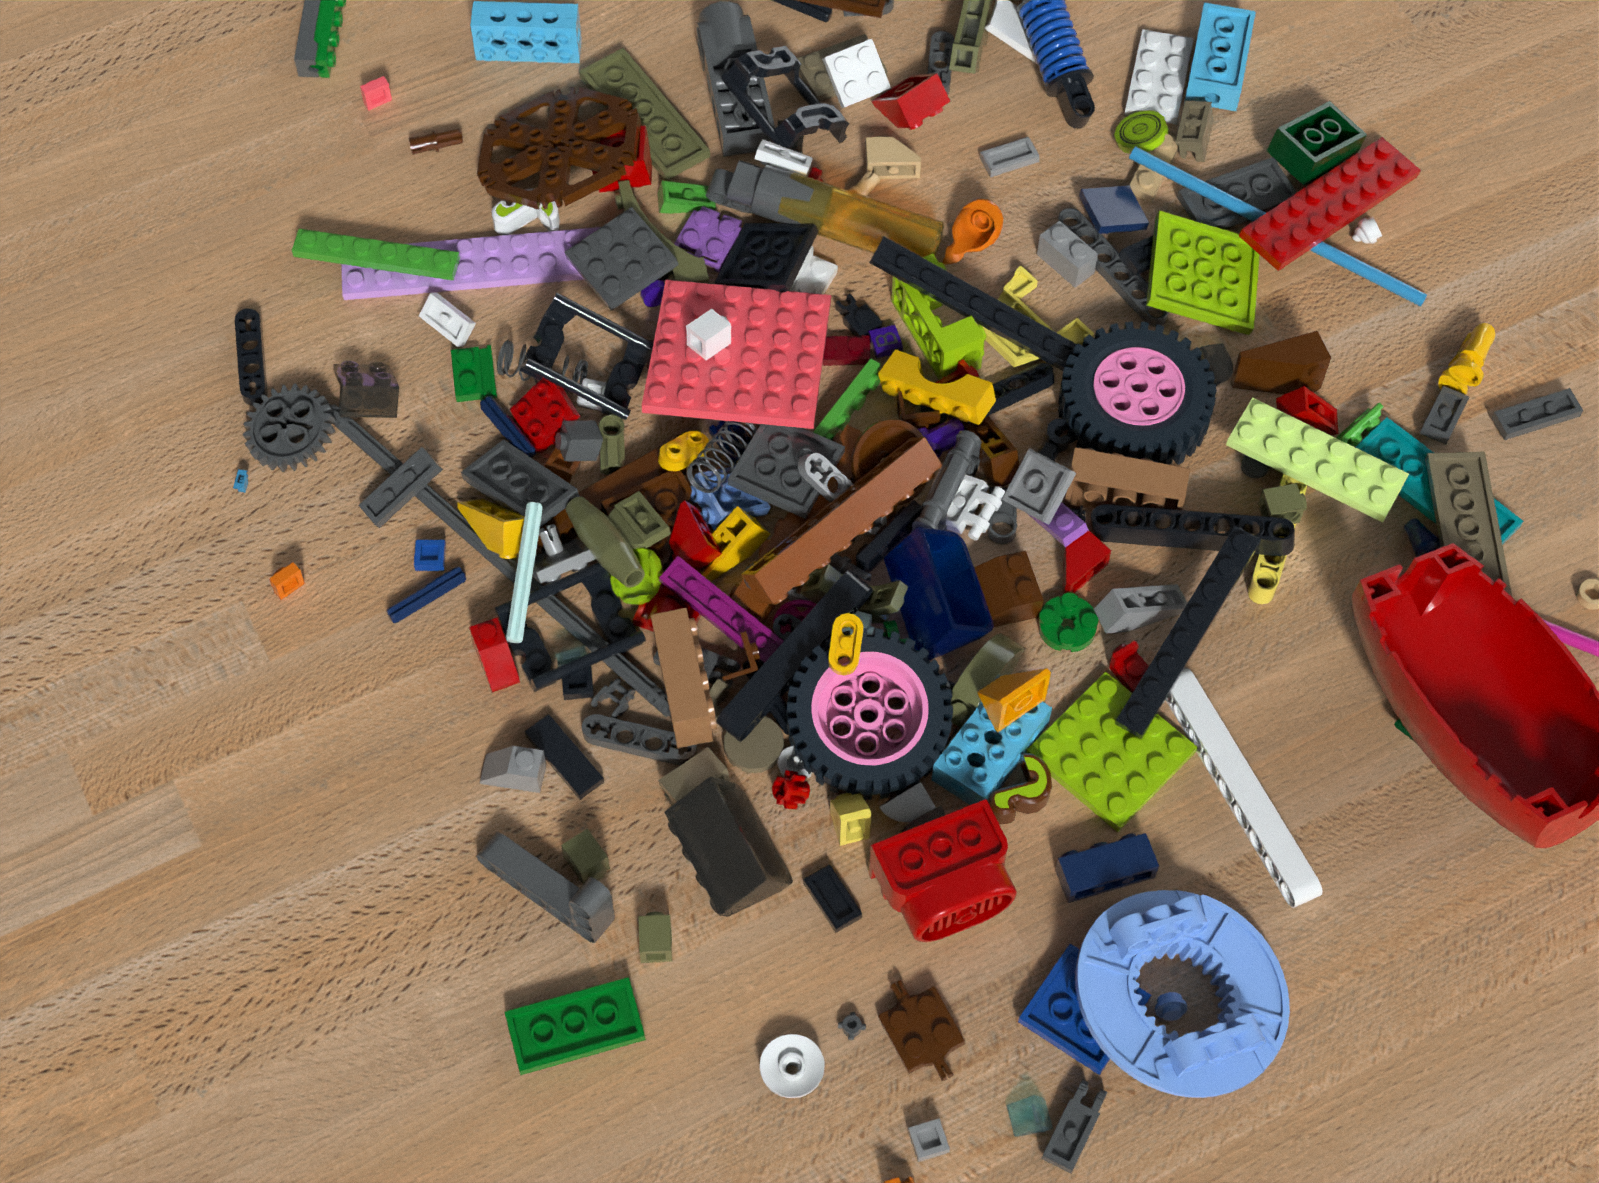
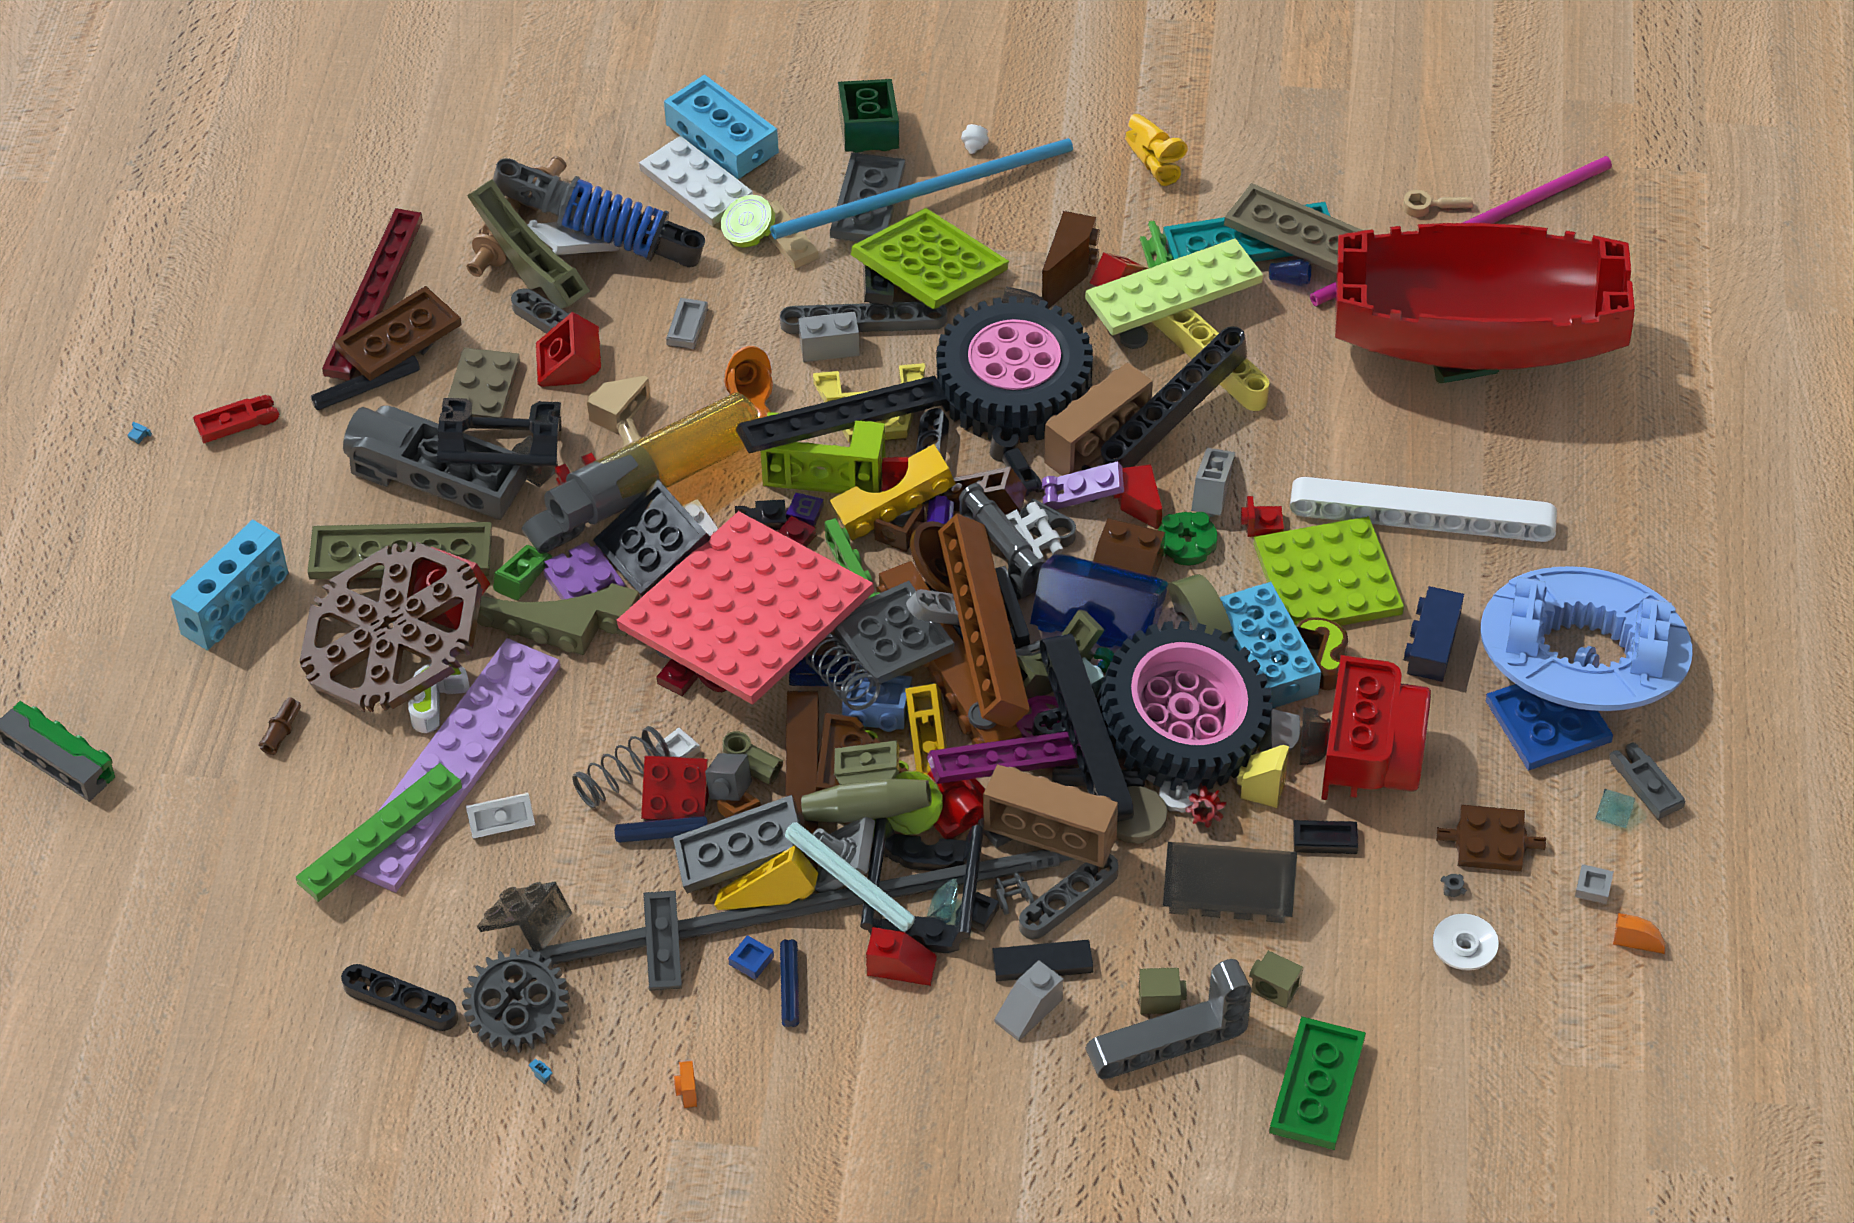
camera: 55 degrees left, 10 degrees down
(376, 93) = (179, 743): coral plate -> none
(473, 373) = (575, 828): green plate -> none
(550, 337) = (678, 711): black piece -> none
(621, 258) = (560, 642): dark grey plate -> none
(653, 294) = (611, 644): dark purple tile -> none
(682, 450) = (812, 700): yellow plate -> none
(691, 774) = (1144, 872): dark tan hinge -> none
(692, 538) = (913, 741): red slope -> none
(708, 334) = (721, 606): white brick -> none
(751, 654) = (1061, 759): reddish brown bracket -> none
(783, 157) = (570, 461): white plate -> none
(845, 645) = (1129, 667): yellow plate -> none
(856, 73) = (507, 373): white plate -> none
(1014, 696) = (1253, 588): light orange slope -> none
(1039, 486) = (1057, 472): light grey plate -> none
(1113, 209) = (811, 281): dark blue tile -> none
(1188, 632) = (1272, 454): black plate -> none
(1195, 129) = (778, 183): dark tan hinge -> none
(1283, 503) = (1202, 328): olive brick -> none
(1329, 203) = (933, 143): red plate -> none
(1444, 415) = (1188, 193): dark grey plate -> none
(1537, 414) = (1233, 139): dark grey plate -> none

